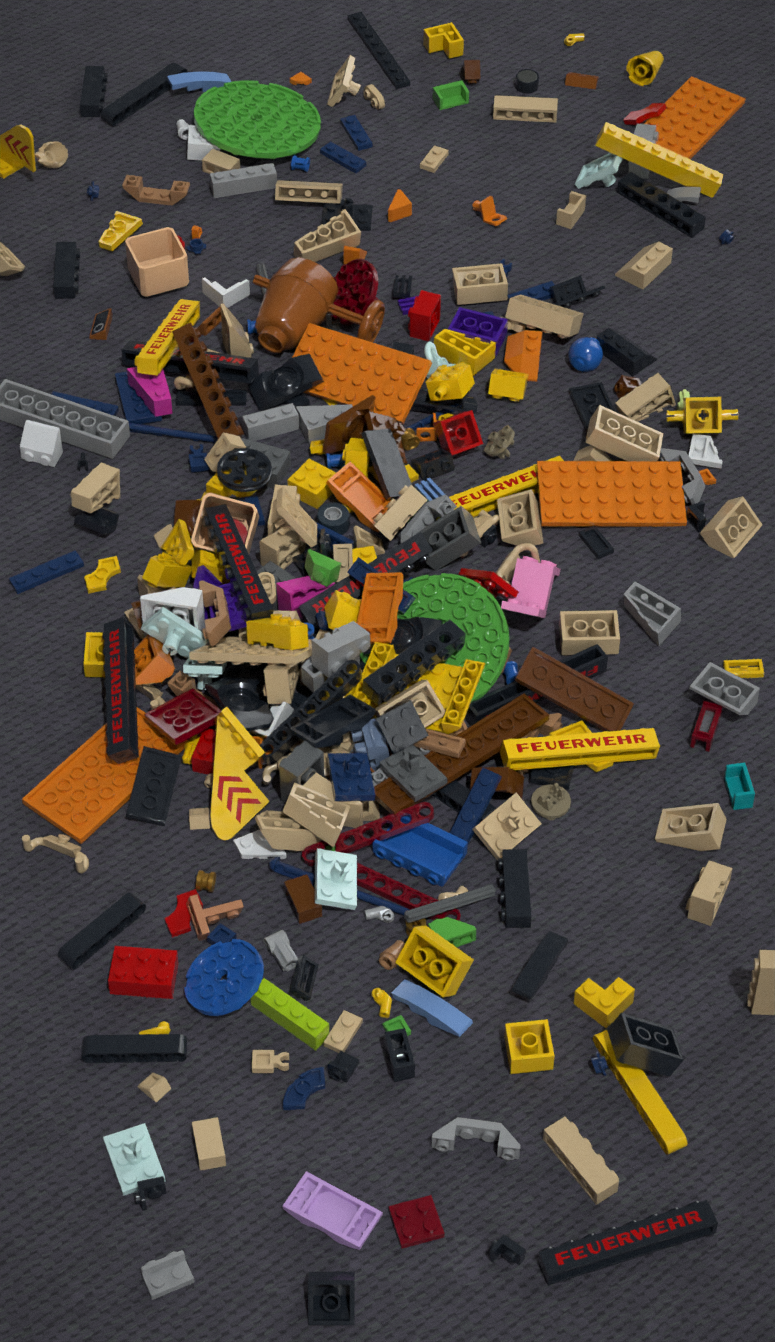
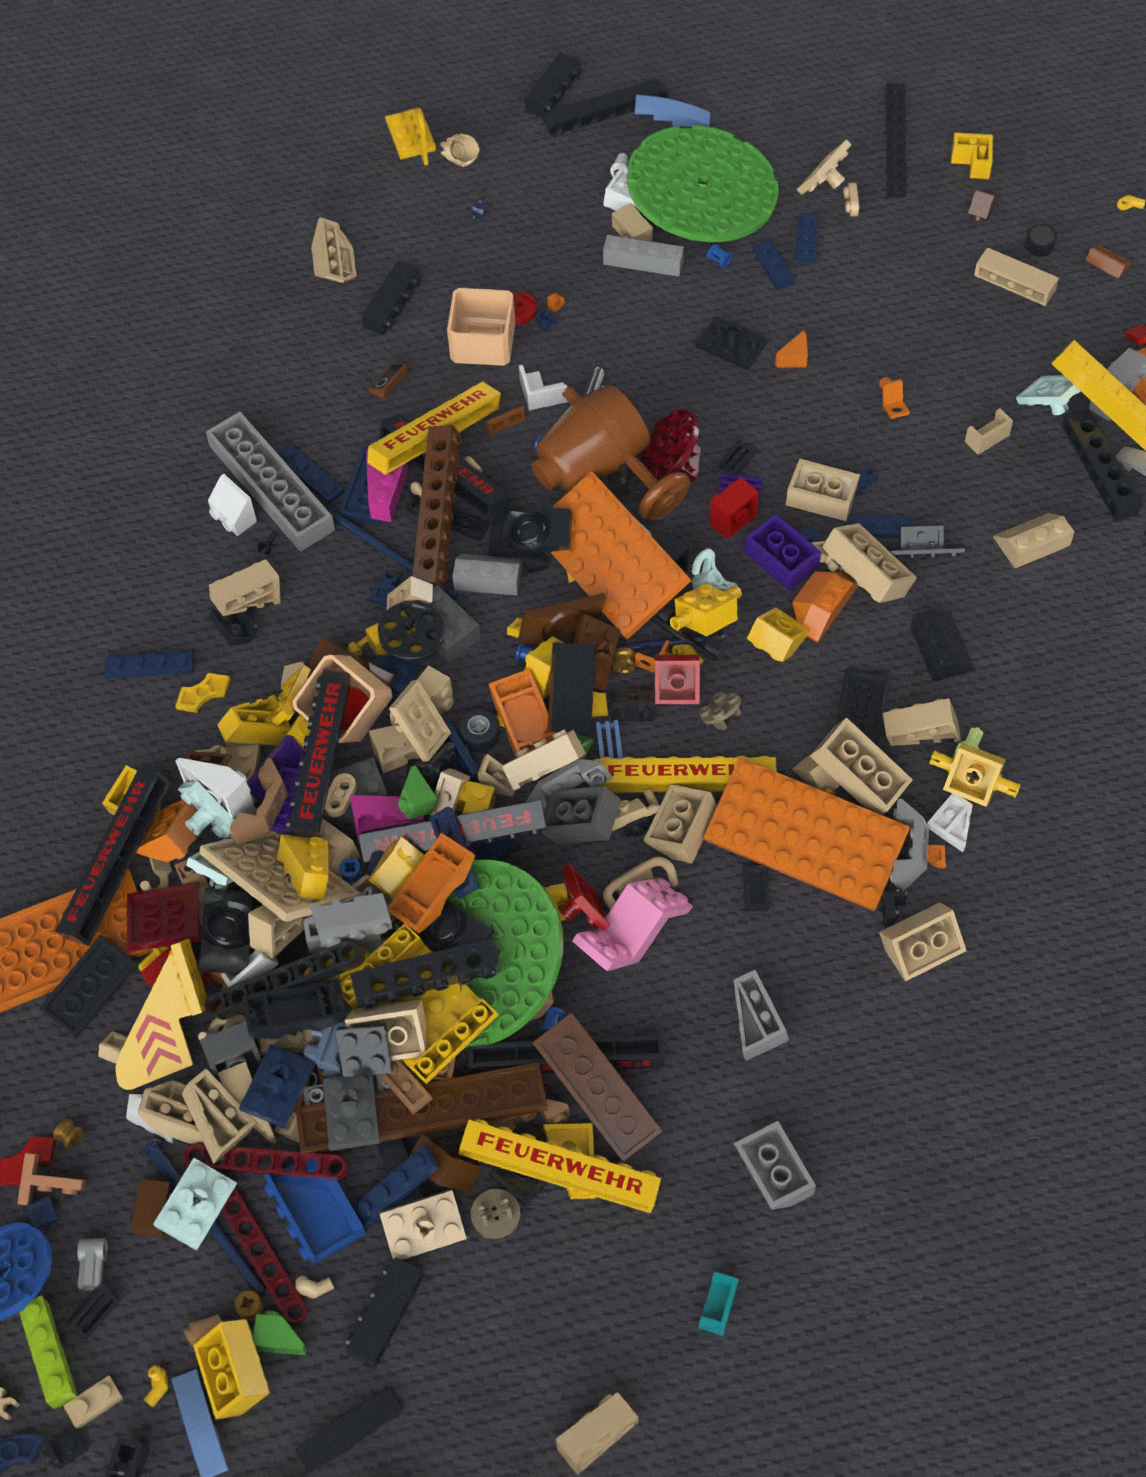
camera: 30 degrees right, 10 degrees up
(119, 230) = (477, 269): yellow wing -> none
(134, 187) = (523, 223): medium nougat slope -> none
(234, 337) = (509, 453): tan slope -> none
(300, 78) = (785, 146): orange tile -> none
(308, 191) = (704, 296): tan brick -> none
(311, 483) = (479, 670): yellow brick -> none
(314, 419) = (538, 592): light grey wedge -> none
(328, 238) = (686, 367): tan wedge -> none
(352, 253) = (706, 397): orange slope -> none
(381, 913) = (224, 1266): light grey arm -> none
(396, 1023) = (151, 1428): bright green tile -> none
(434, 159) = (873, 304): tan plate -> none
(449, 903) = (297, 1297): dark grey axle -> none
(450, 95) = (940, 227): bright green panel -> none
(458, 348) = (752, 572): yellow wedge -> none
(585, 354) = (889, 632): blue brick -> none
(587, 628) = (668, 1010): tan brick -> none
(626, 384) = (915, 693): reddish brown bracket -> none
(692, 827) = (631, 1331): tan slope -> none
(707, 724) = (731, 1200): dark red window -> none
(745, 671) = (821, 1148): yellow tile -> none

